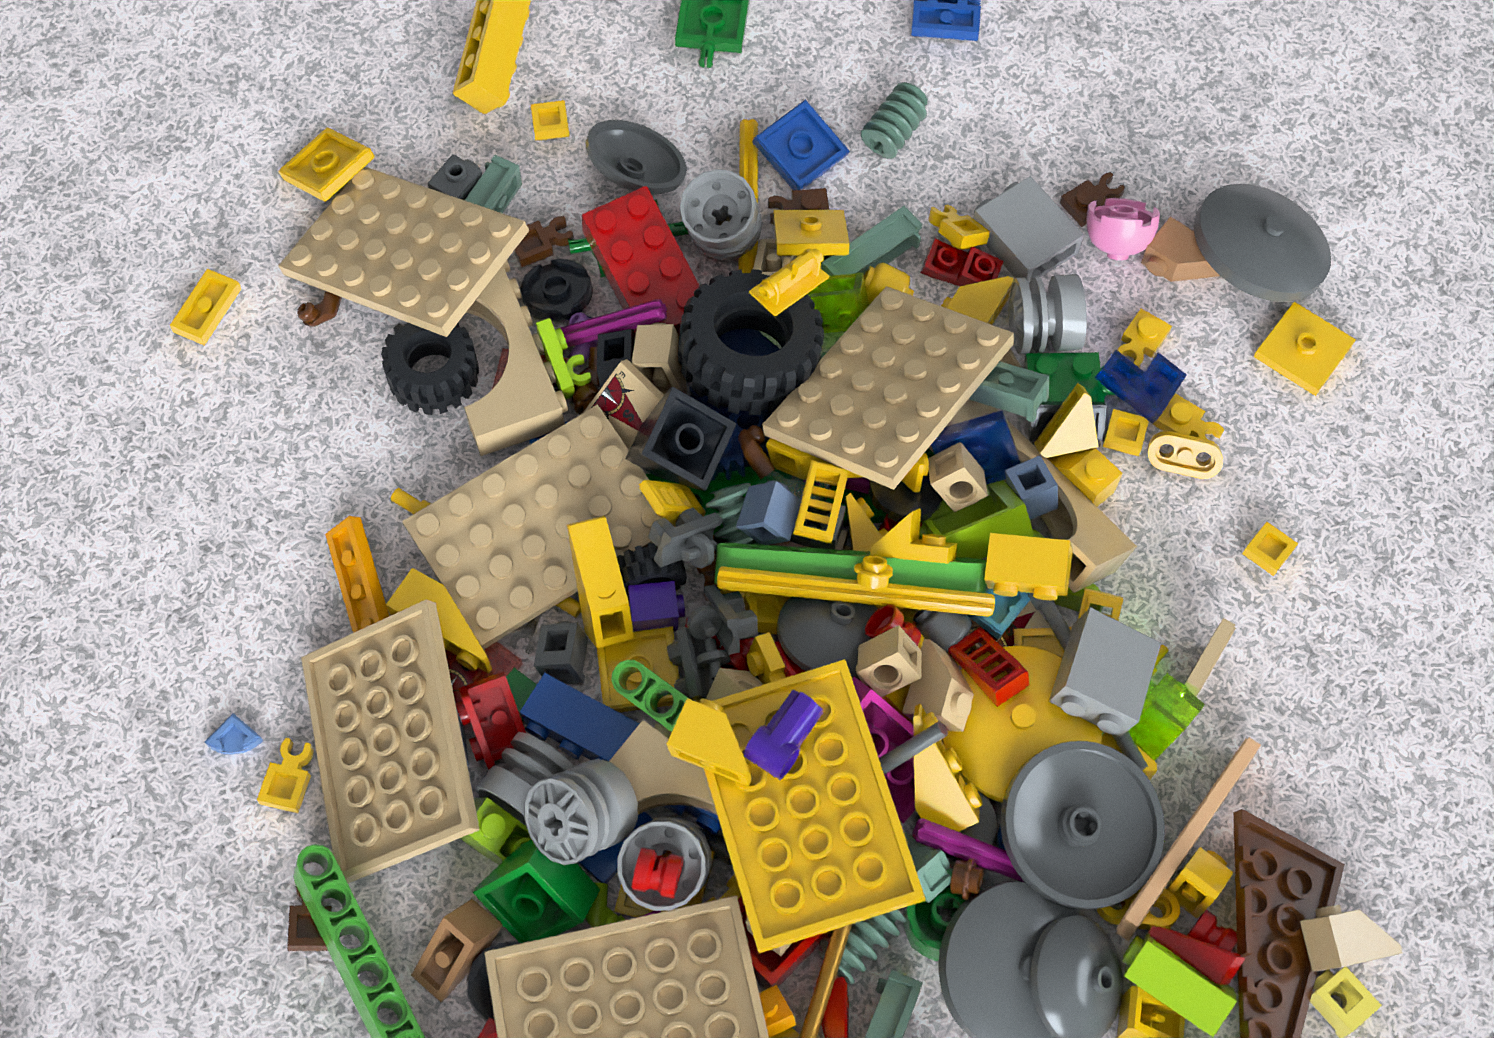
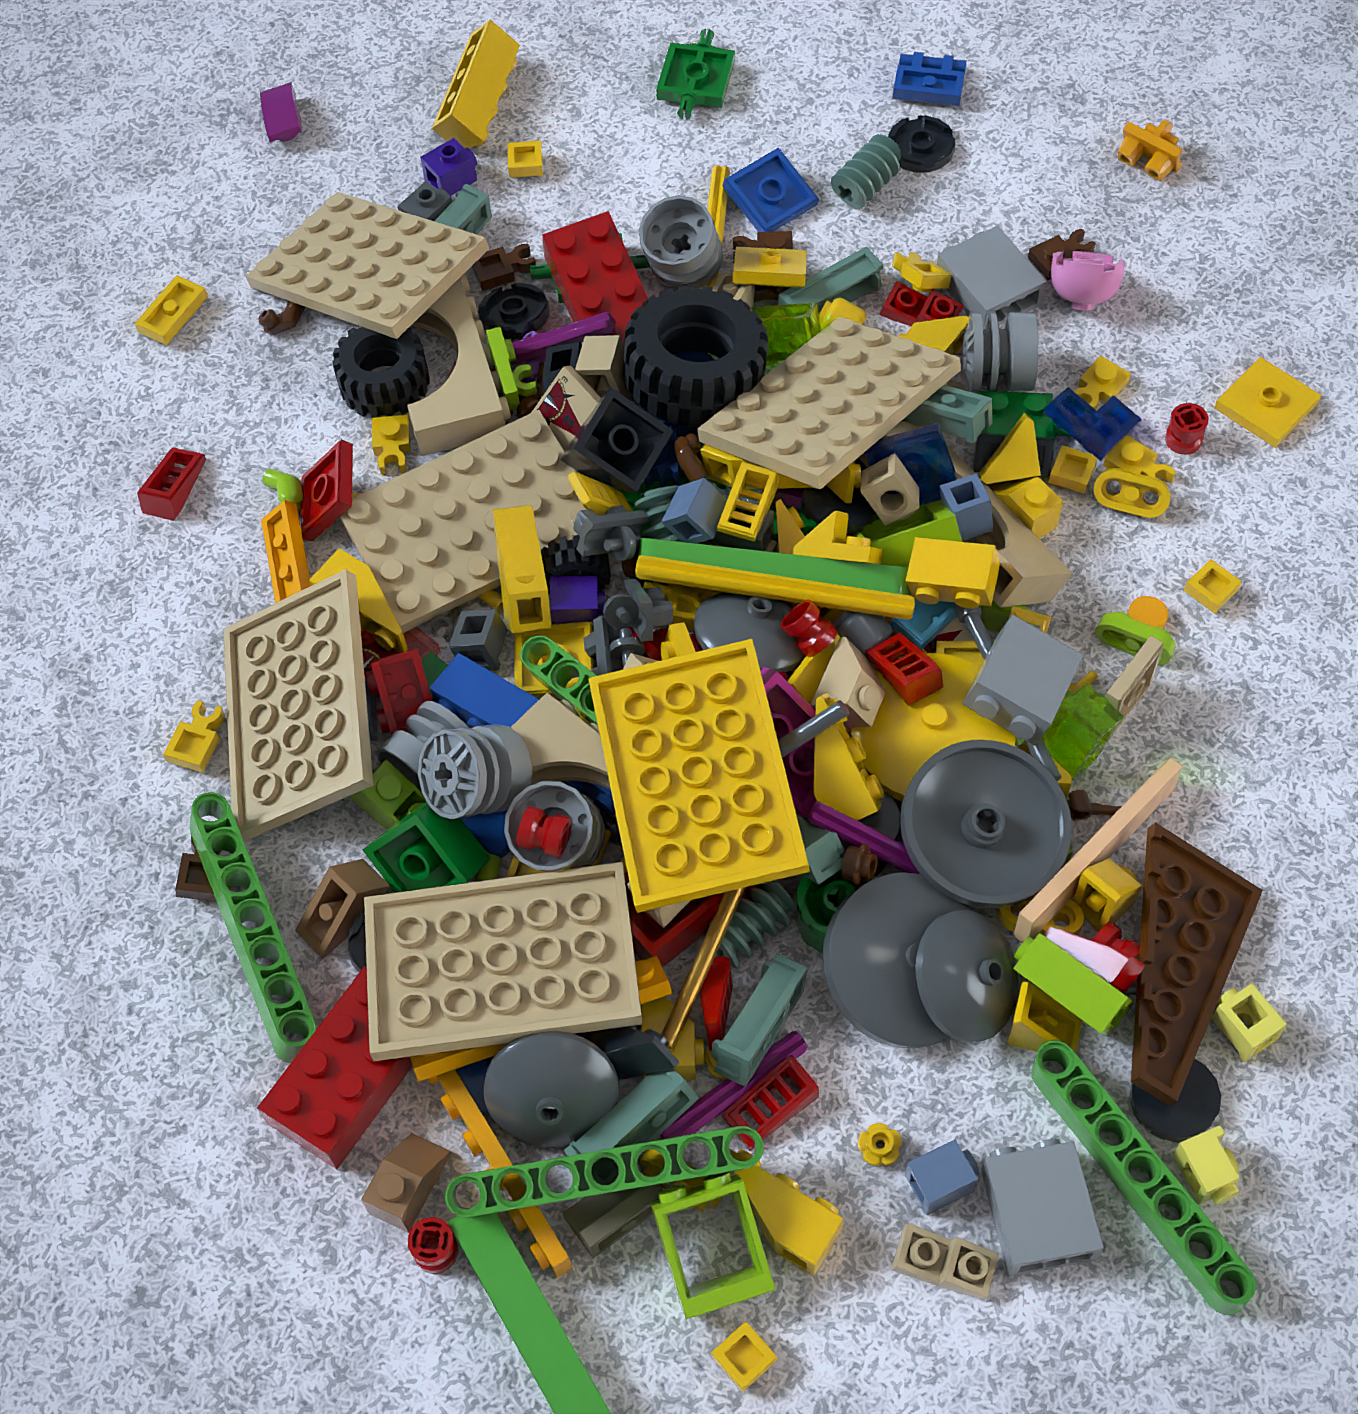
camera: 10 degrees right, 5 degrees down
(222, 519) = (169, 503): none -> red slope
(233, 736) = (149, 698): medium blue tile -> none
(293, 79) = (280, 113): none -> magenta slope
(326, 164) = (303, 188): yellow plate -> none
(348, 495) = (287, 486): none -> lime arm
(391, 502) = (327, 490): none -> red plate
(447, 437) = (390, 440): none -> yellow plate
(474, 134) = (449, 166): none -> dark purple brick
(635, 156) = (599, 187): dark grey dish -> none
(708, 741) = (604, 705): yellow slope -> none
(778, 743) = (674, 711): dark purple piece -> none
(791, 282) = (738, 297): yellow hinge -> none
(873, 572) = (792, 567): yellow plate -> none
(889, 661) = (807, 639): tan brick -> none
(950, 93) = (918, 151): none -> black tile
(1166, 789) = (1081, 808): none -> reddish brown hand
(1174, 76) = (1153, 143): none -> light orange hips
(1176, 254) = (1149, 307): medium nougat slope -> none
(1199, 608) = (1130, 635): none -> lime plate
(1210, 583) = (1149, 611): none -> light orange tile
(1224, 389) = (1186, 428): none -> red wheel
(1262, 242) = (1230, 298): dark grey dish -> none
(1345, 939) = (1256, 956): tan slope -> none

